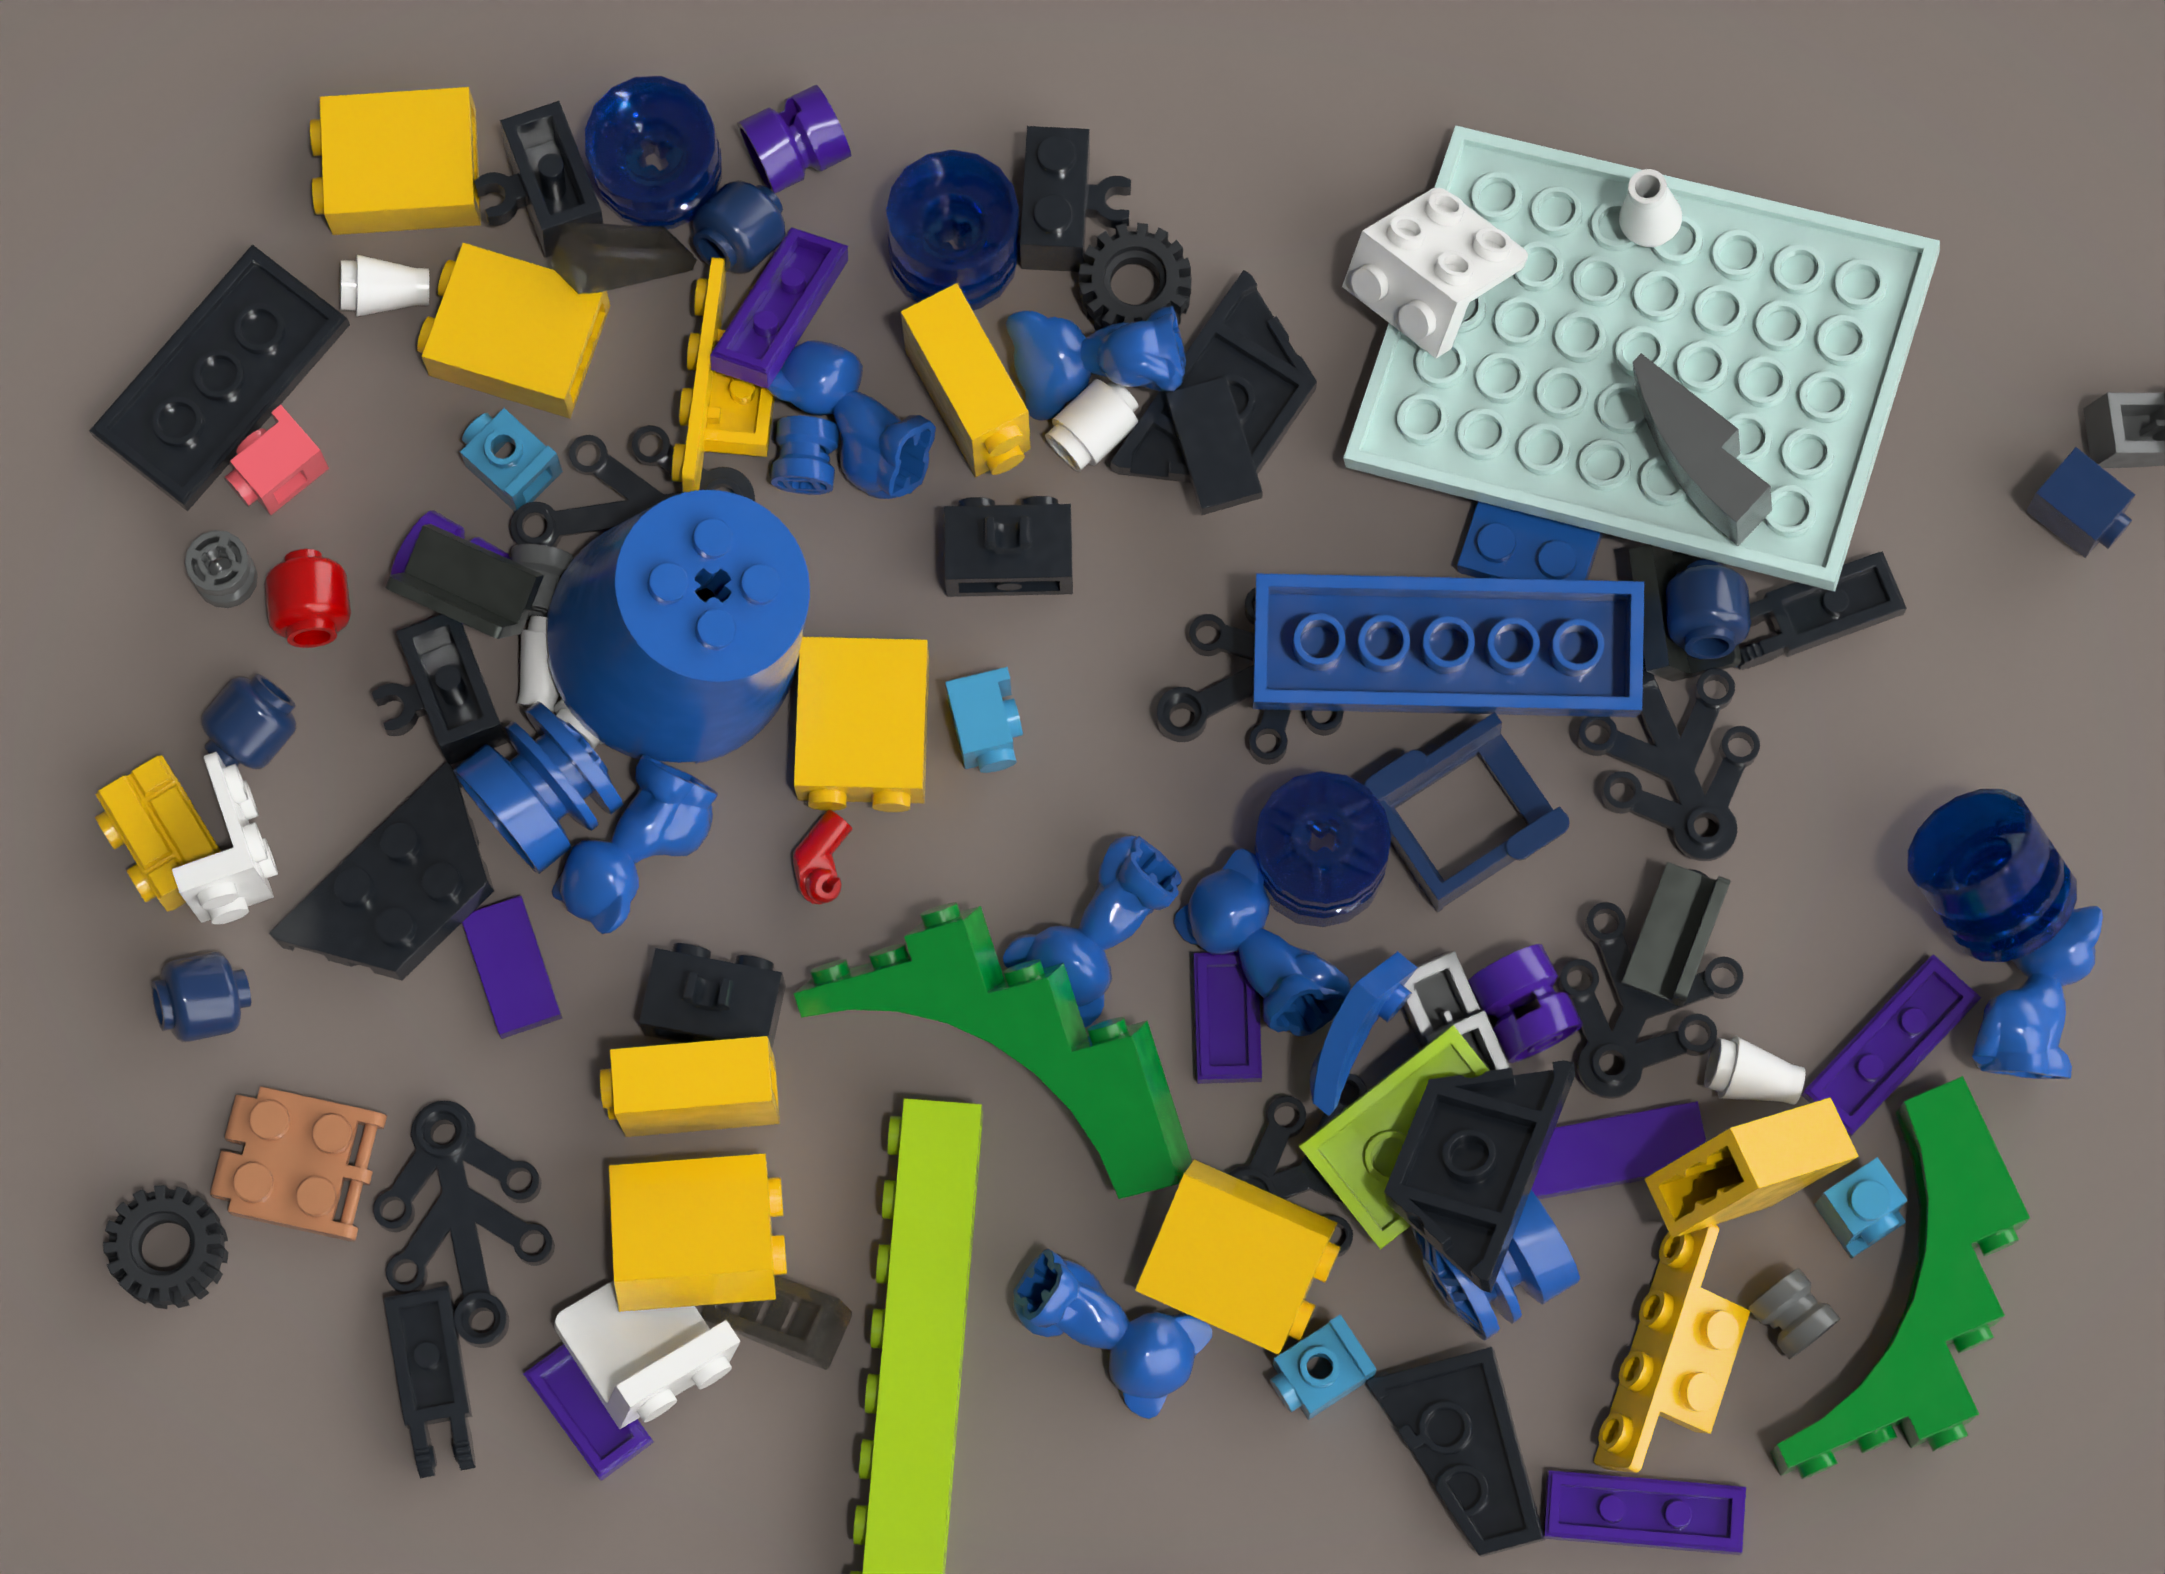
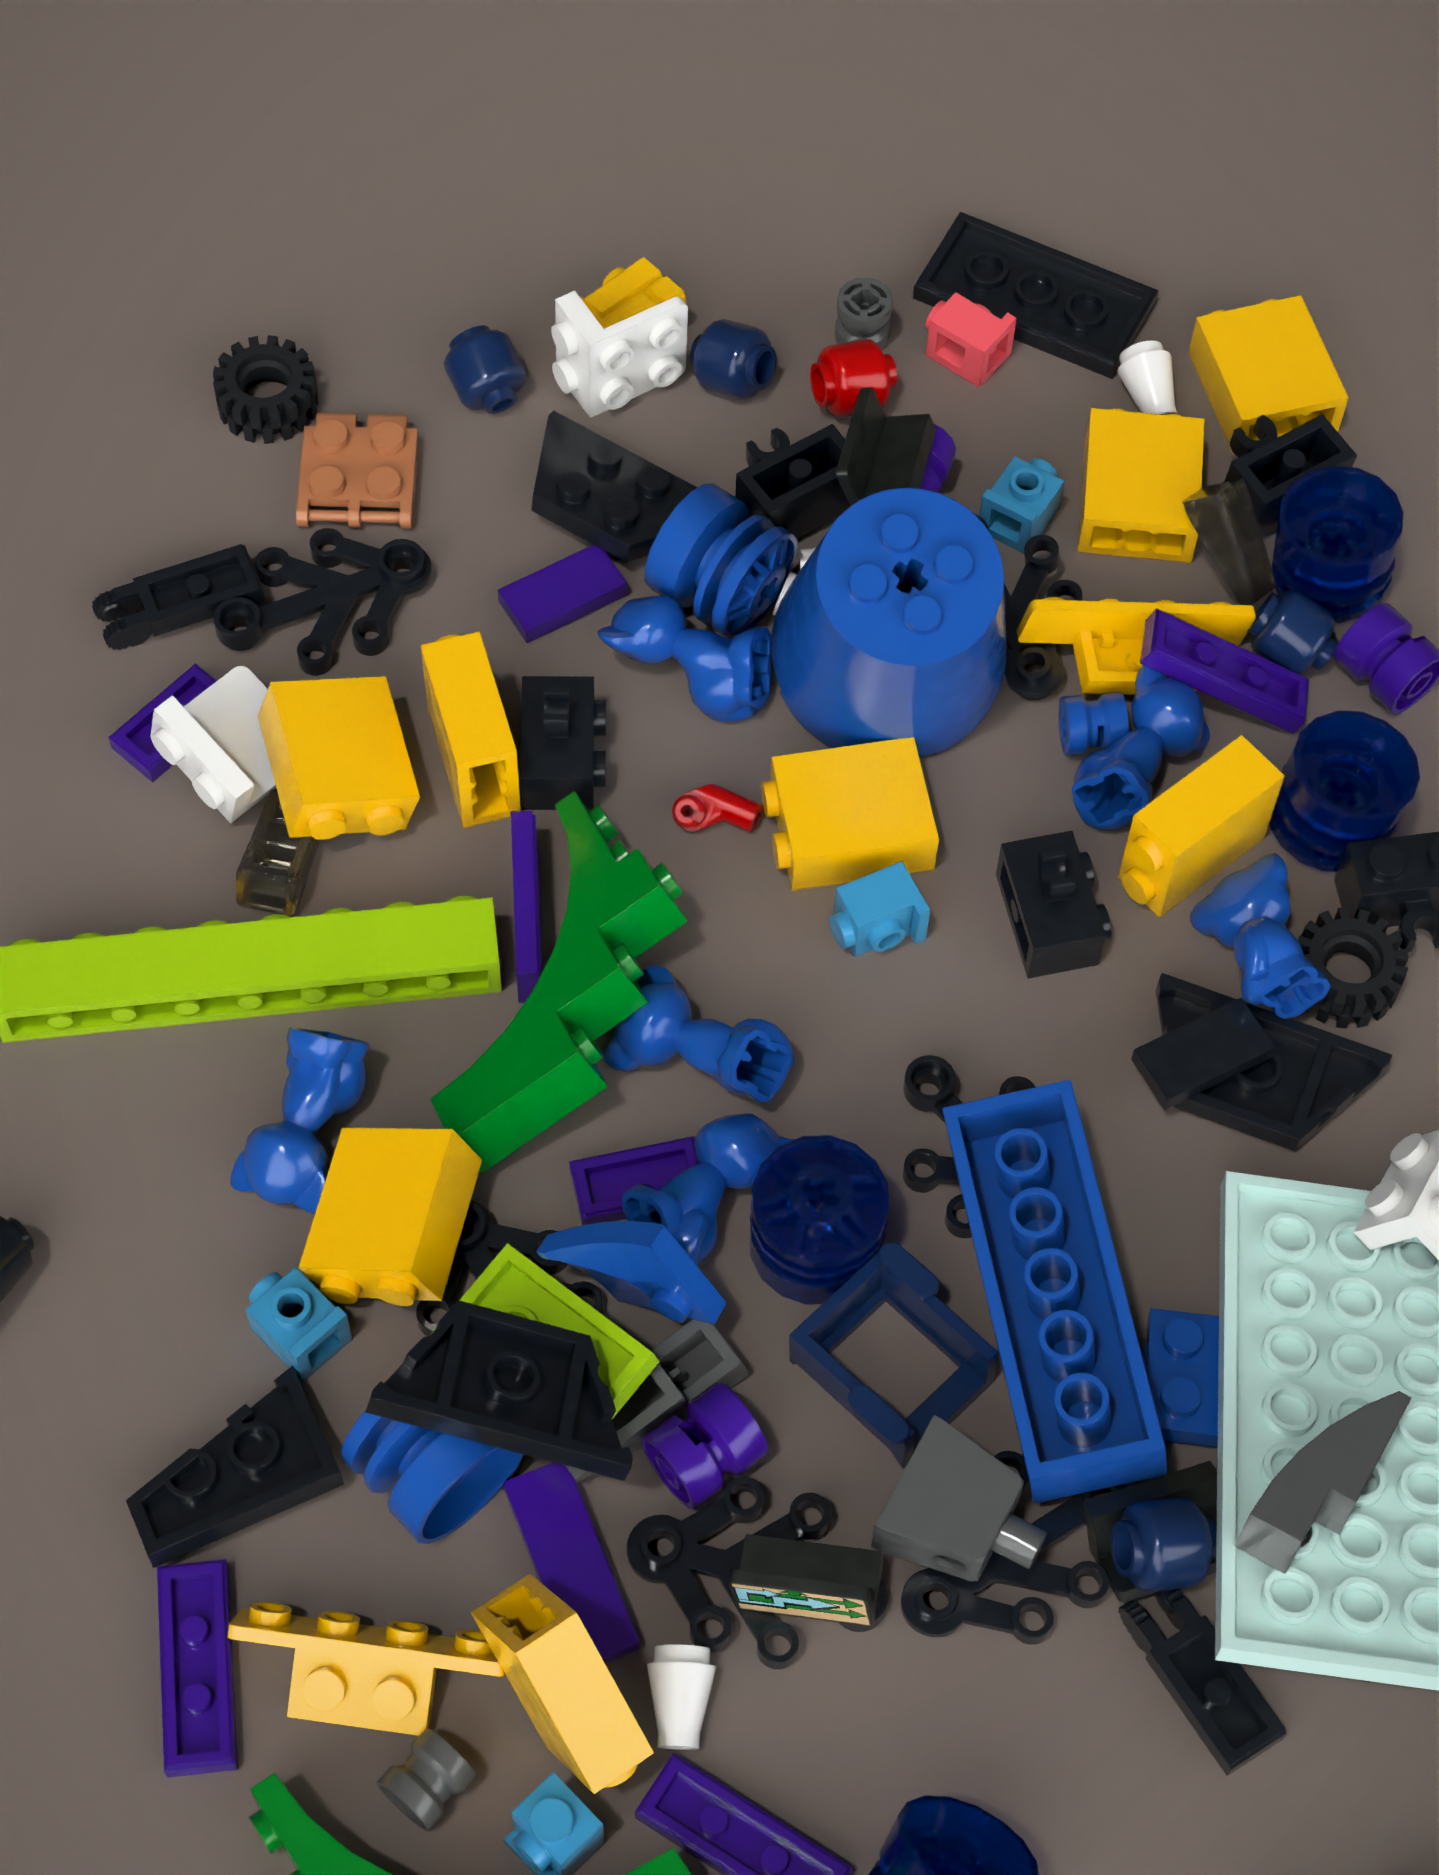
camera: 75 degrees right, 15 degrees down
(903, 1069) = (526, 902): none -> dark purple tile
(1093, 424) = (1194, 952): white brick -> none
(1638, 785) = (955, 1508): none -> dark grey torso

